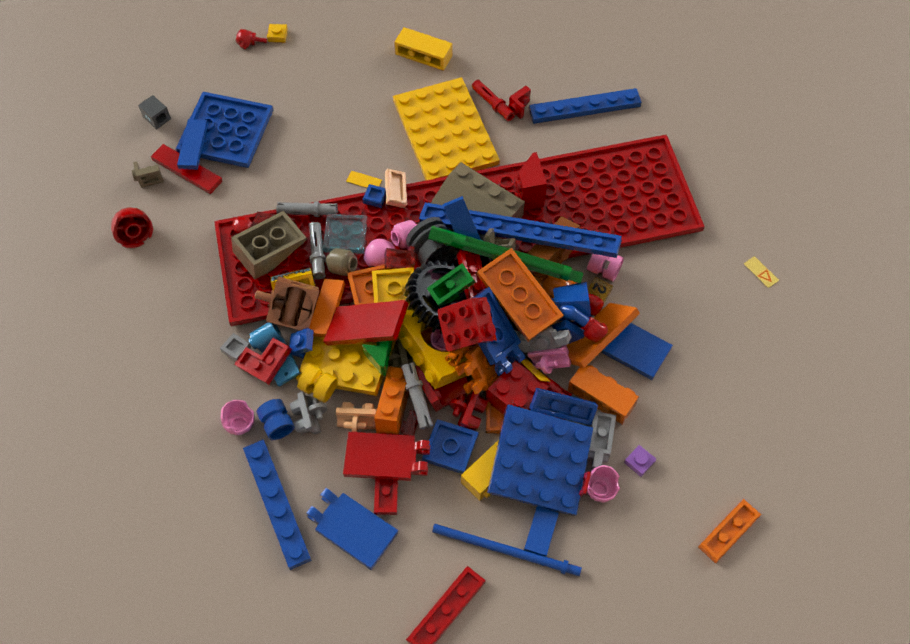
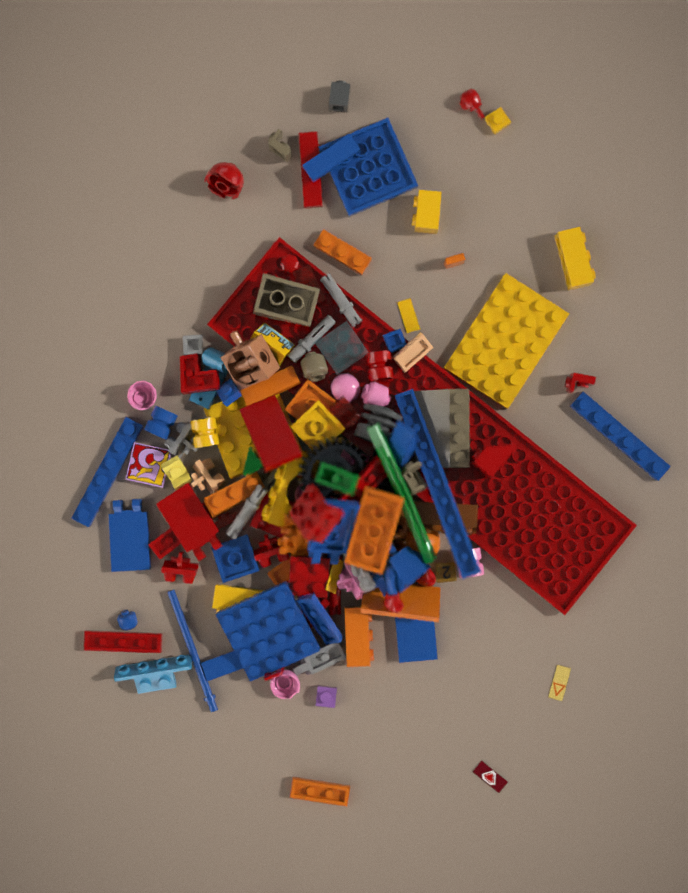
camera: 55 degrees right, 25 degrees up
(270, 190) = (342, 252): none -> orange plate
(297, 113) = (427, 212): none -> yellow brick
(302, 461) = (146, 465): none -> tile
(330, 438) = (176, 472): none -> light yellow bracket
(351, 120) = (455, 260): none -> orange tile
(385, 214) = (379, 366): none -> red wheel
(428, 591) = (127, 620): none -> blue piece
(429, 495) = (181, 566): none -> red hips
(498, 105) = (563, 365): red pin -> none
(502, 602) = (153, 674): none -> dark azure bracket
(812, 378) = (490, 776): none -> dark red sticker

